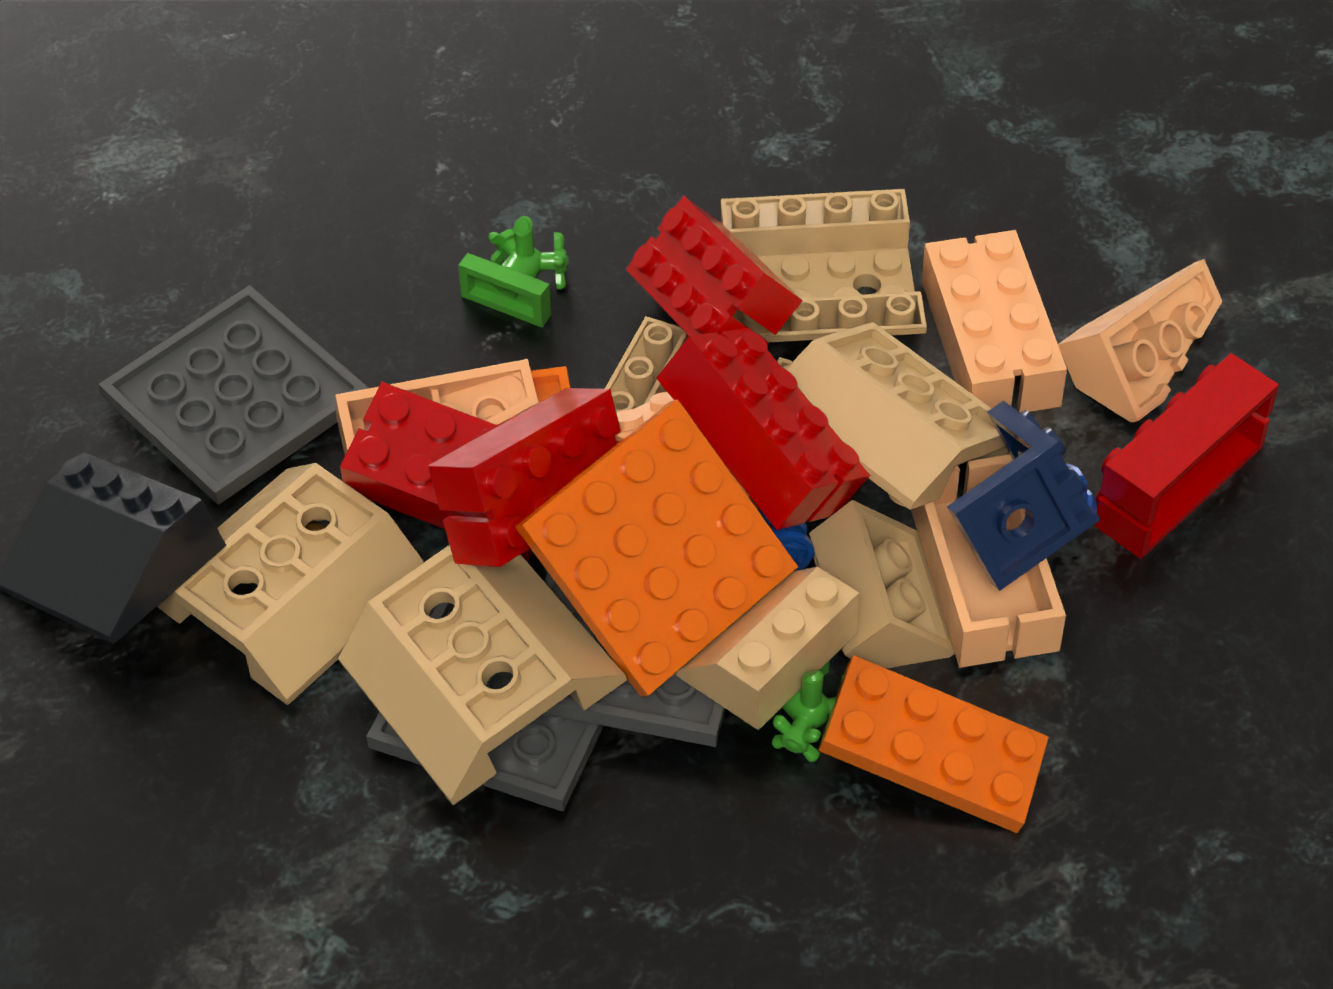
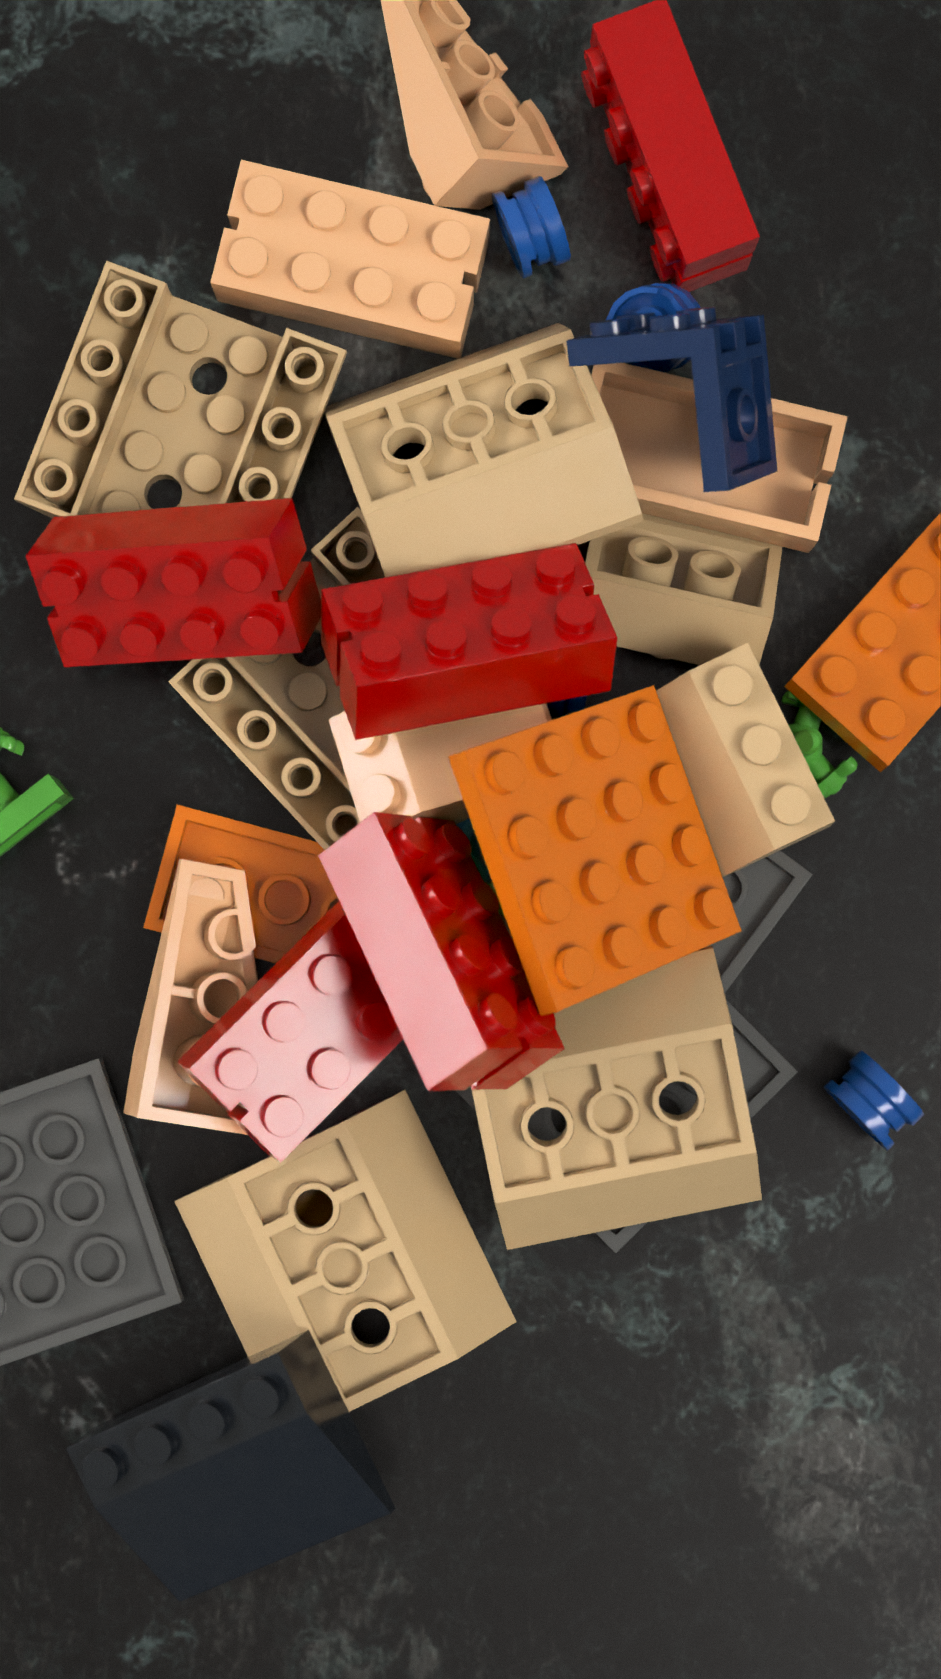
camera: 65 degrees left, 35 degrees up
(563, 855) = (874, 1099): none -> blue wheel
(1079, 407) = (531, 226): none -> blue wheel

